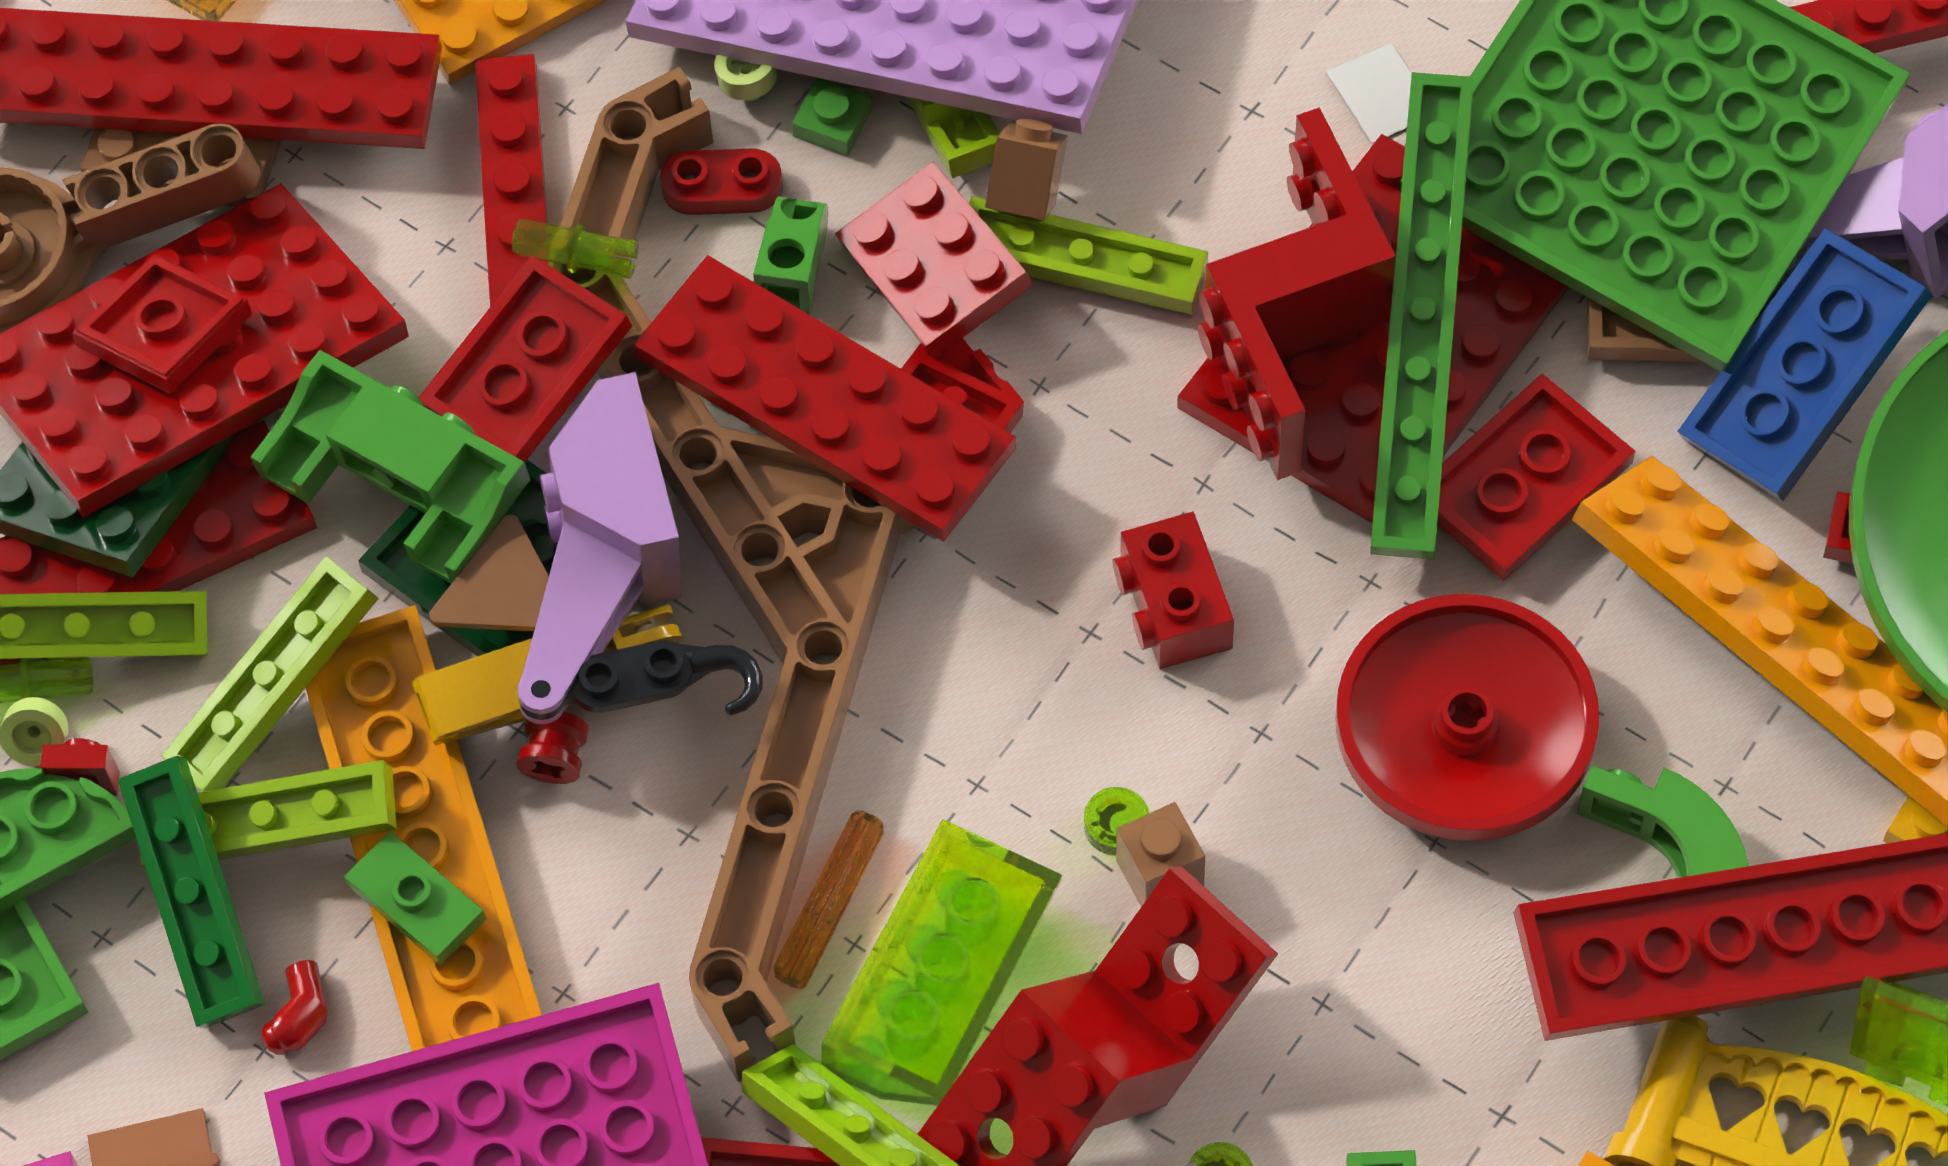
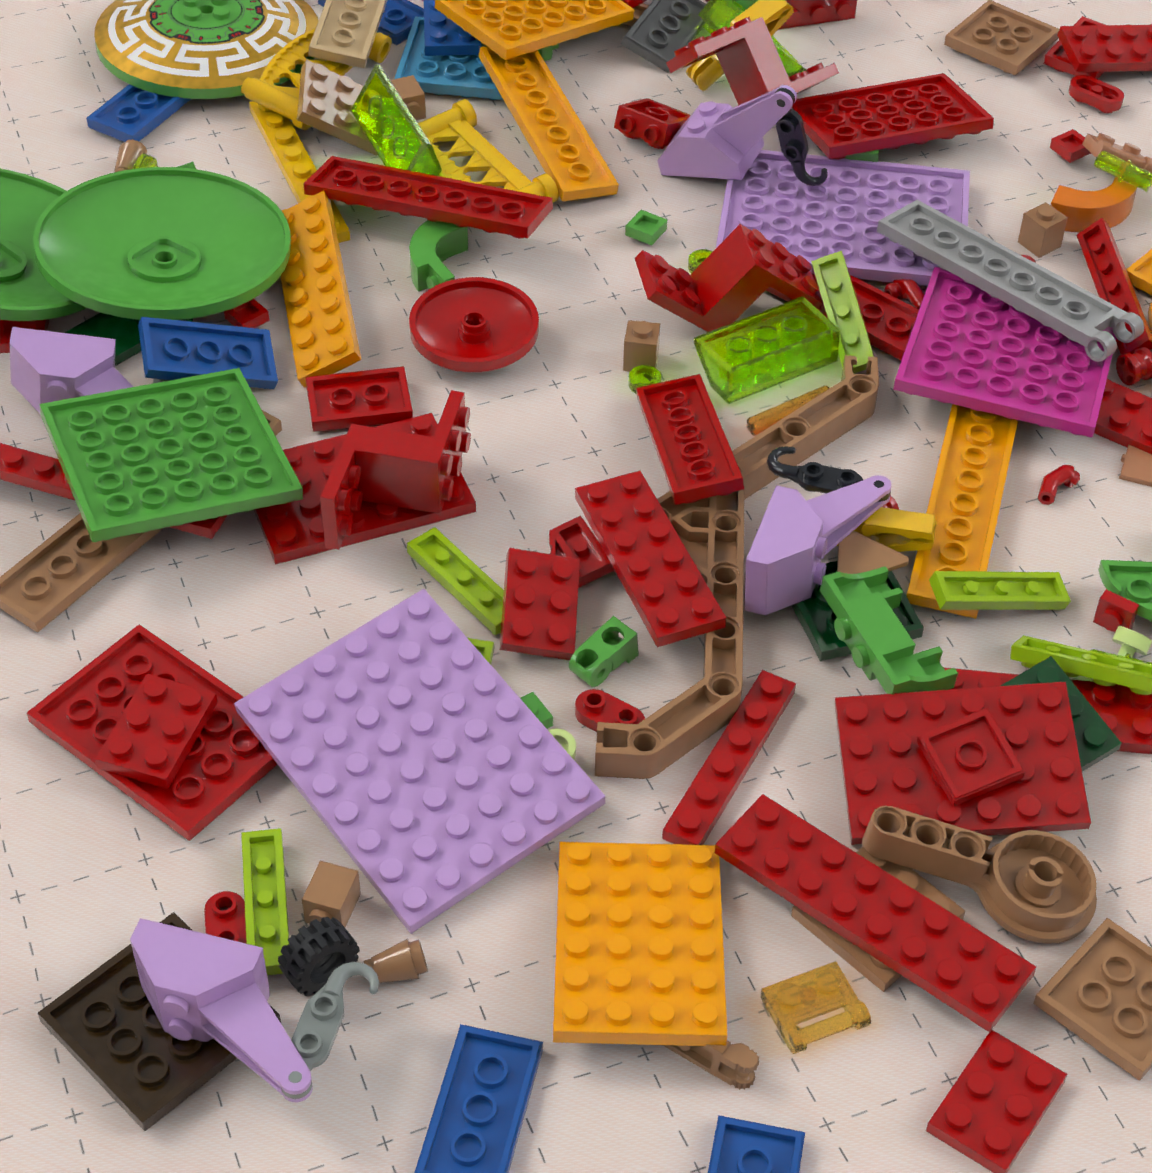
camera: 150 degrees left, 15 degrees down
(191, 892) = (1087, 529): green plate -> none
(300, 809) = (1033, 541): lime plate -> none
(415, 898) = (981, 477): bright green plate -> none
(527, 359) = (785, 646): red plate -> none
(575, 247) = (722, 677): clear neon green axle -> none
(928, 669) = (689, 439): none -> red plate
(1026, 169) = (465, 605): medium nougat brick -> none
(1175, 591) = (548, 431): red brick -> none
(1375, 90) = (249, 585): white sticker -> none
(1422, 316) = (322, 448): bright green plate -> none

